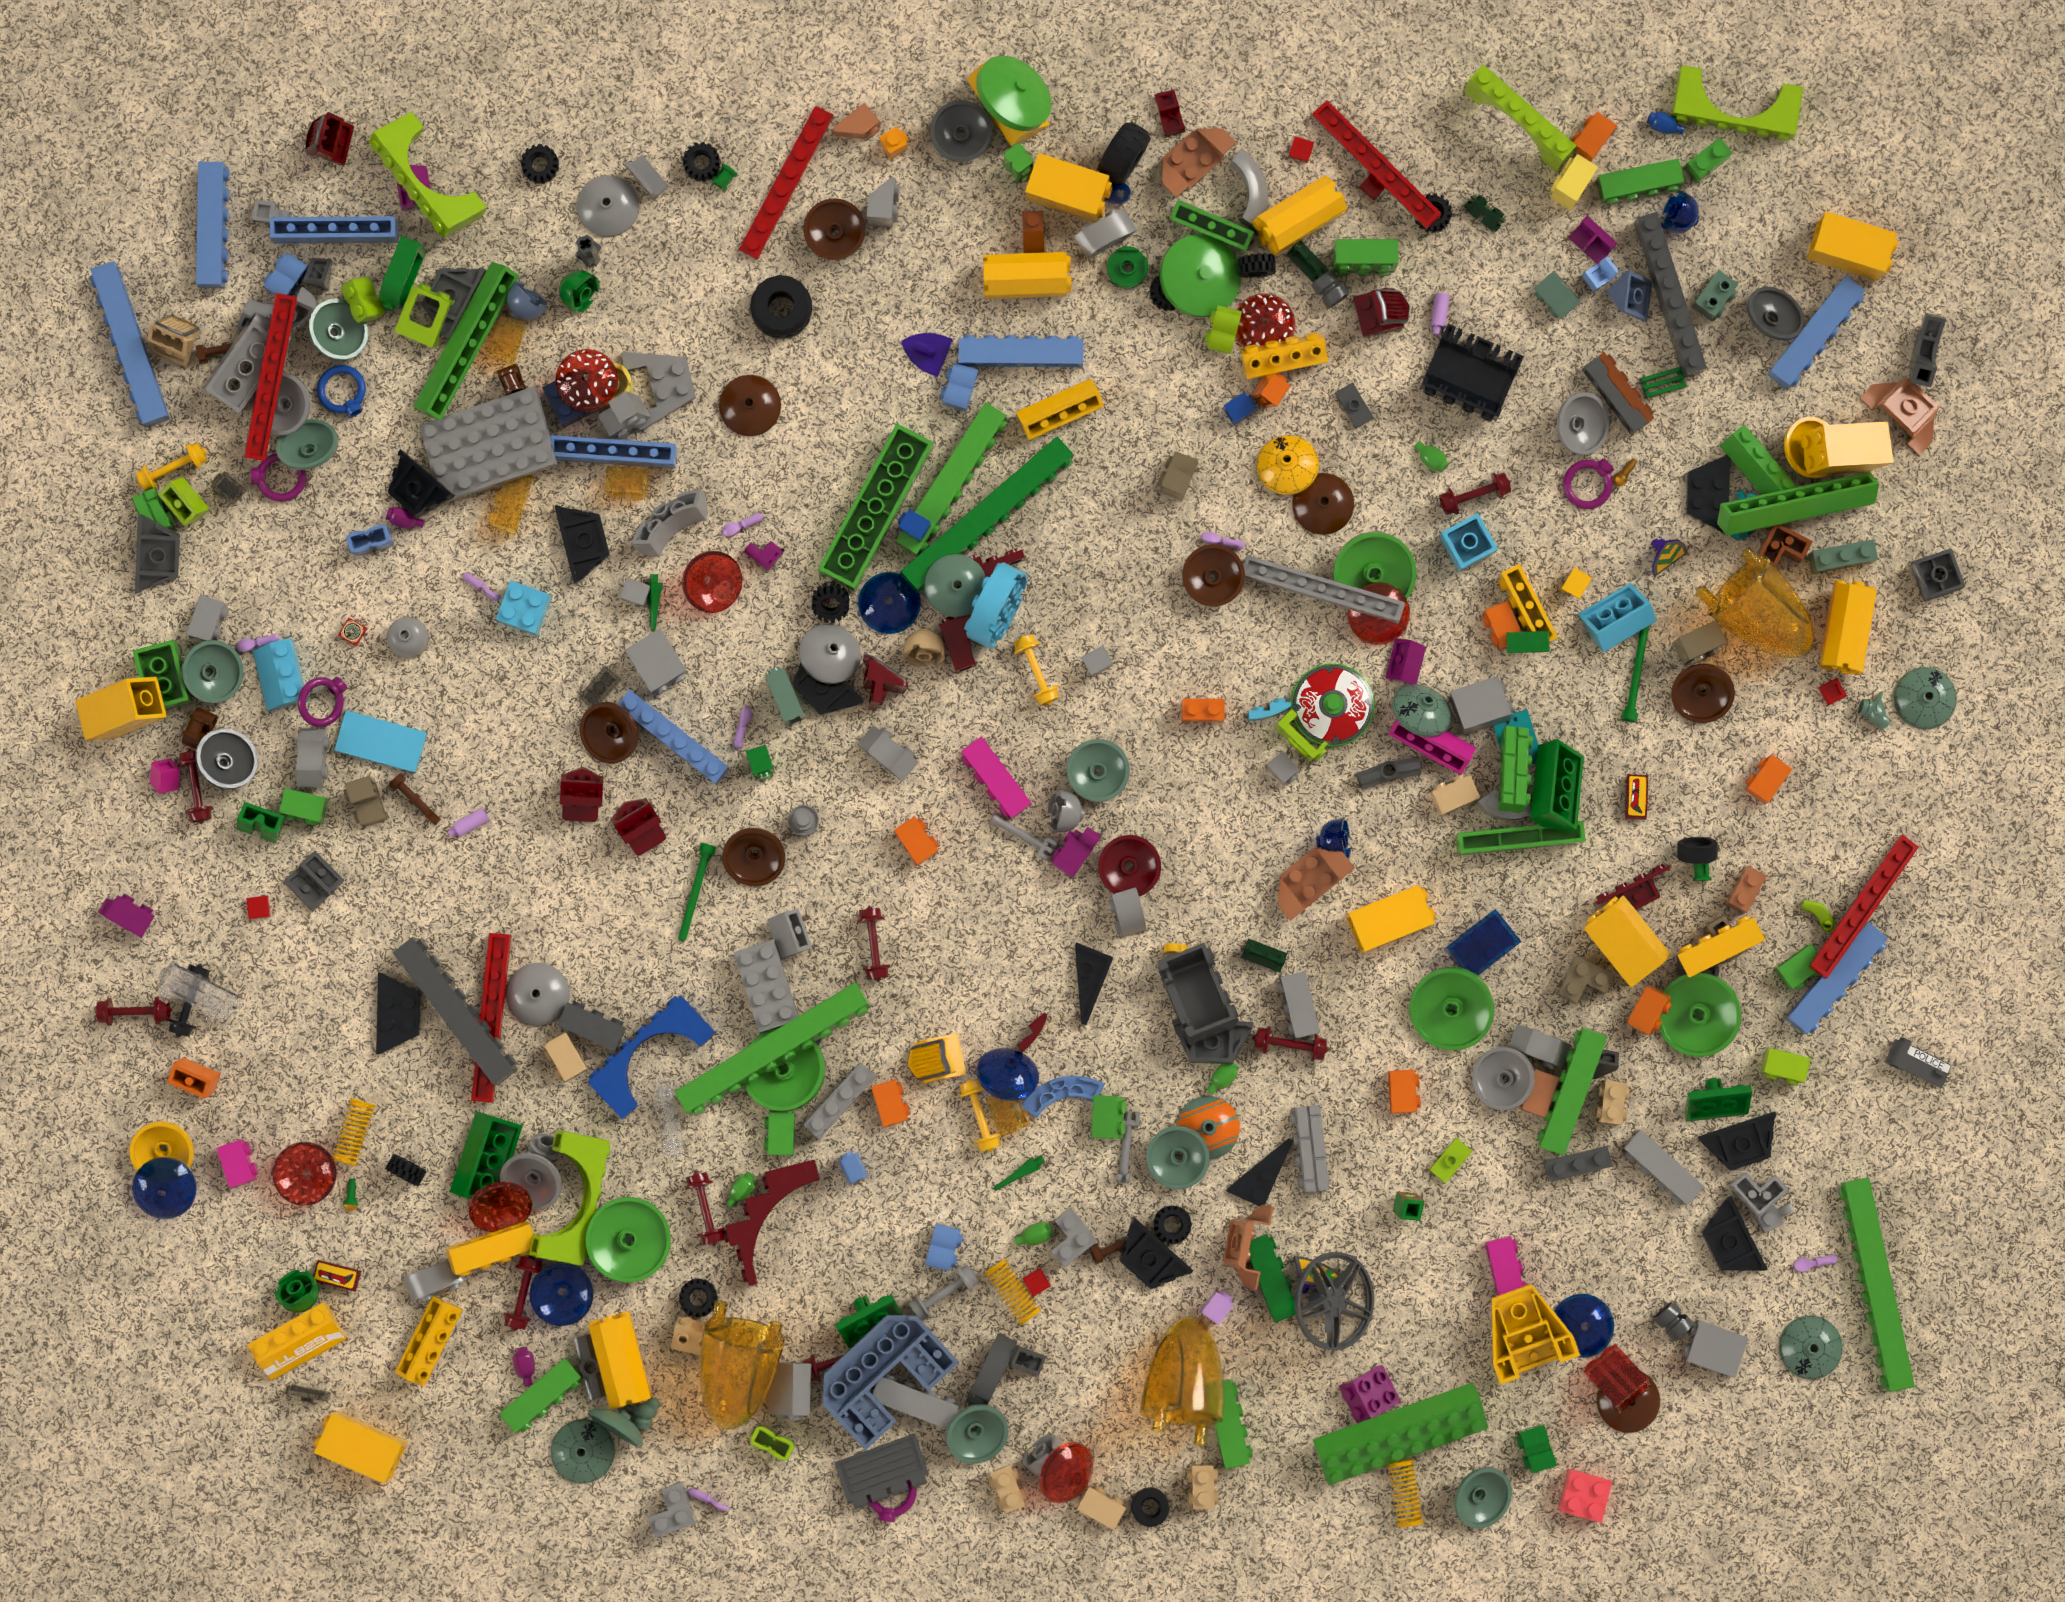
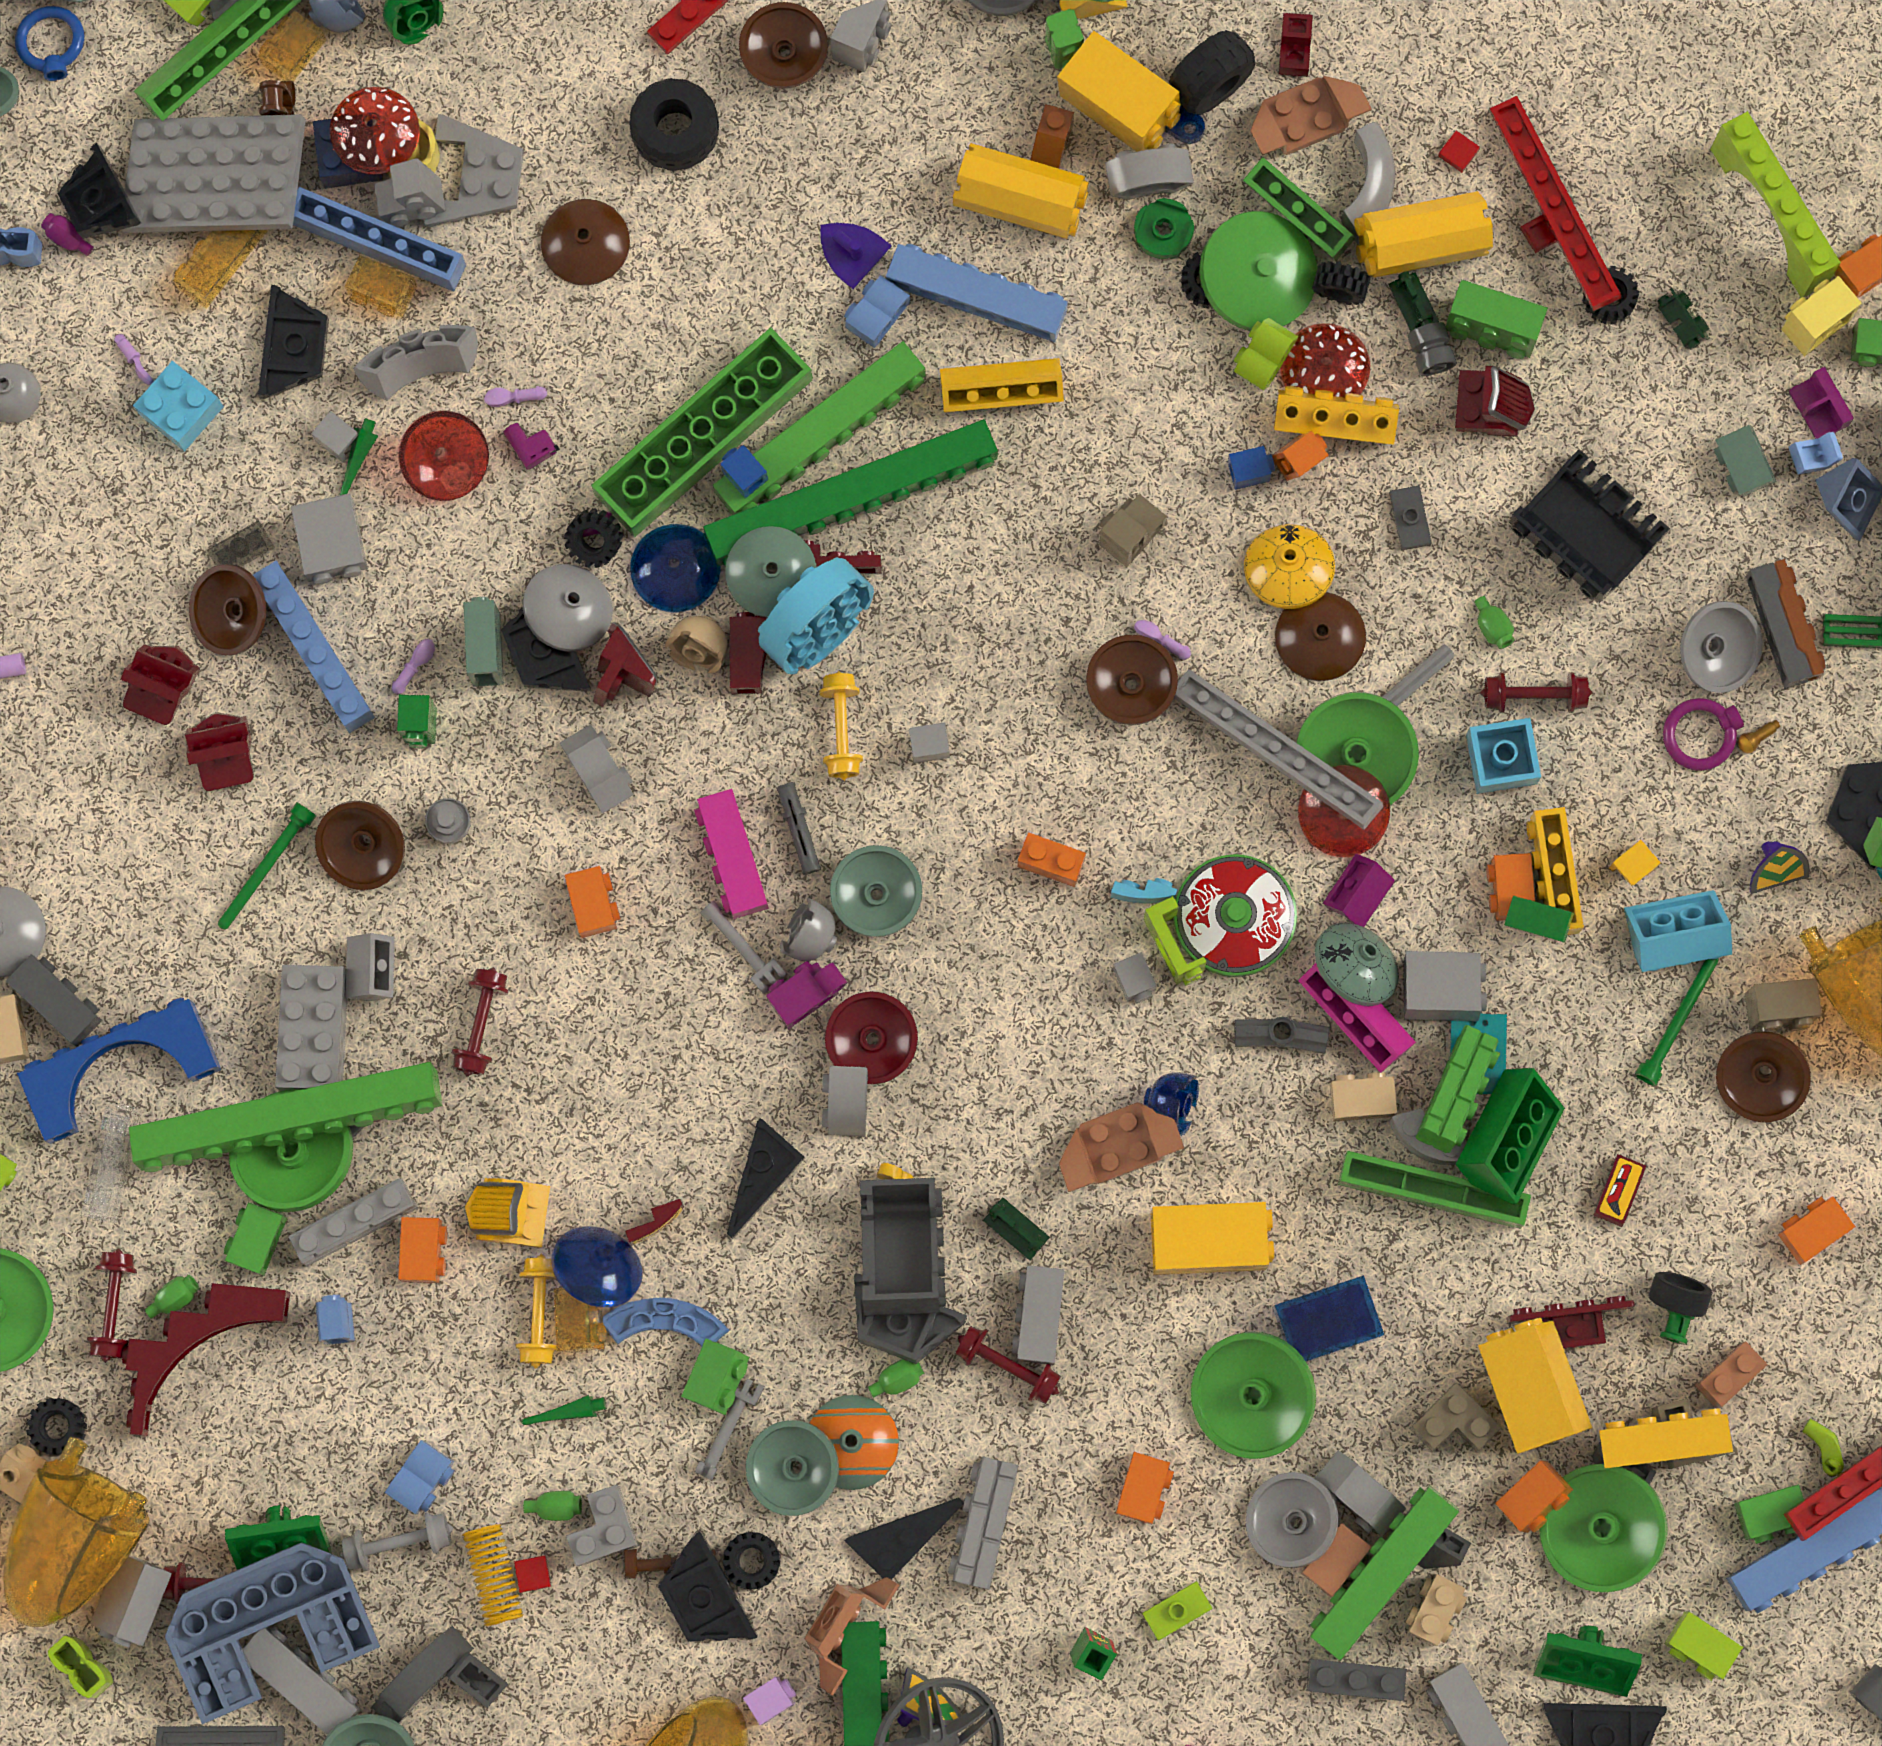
camera: 30 degrees right, 5 degrees down
(1046, 766) = (789, 795): none -> dark grey pin
(1395, 508) = (1419, 675): none -> light grey axle
(1439, 312) = (1573, 431): lavender cylinder -> none

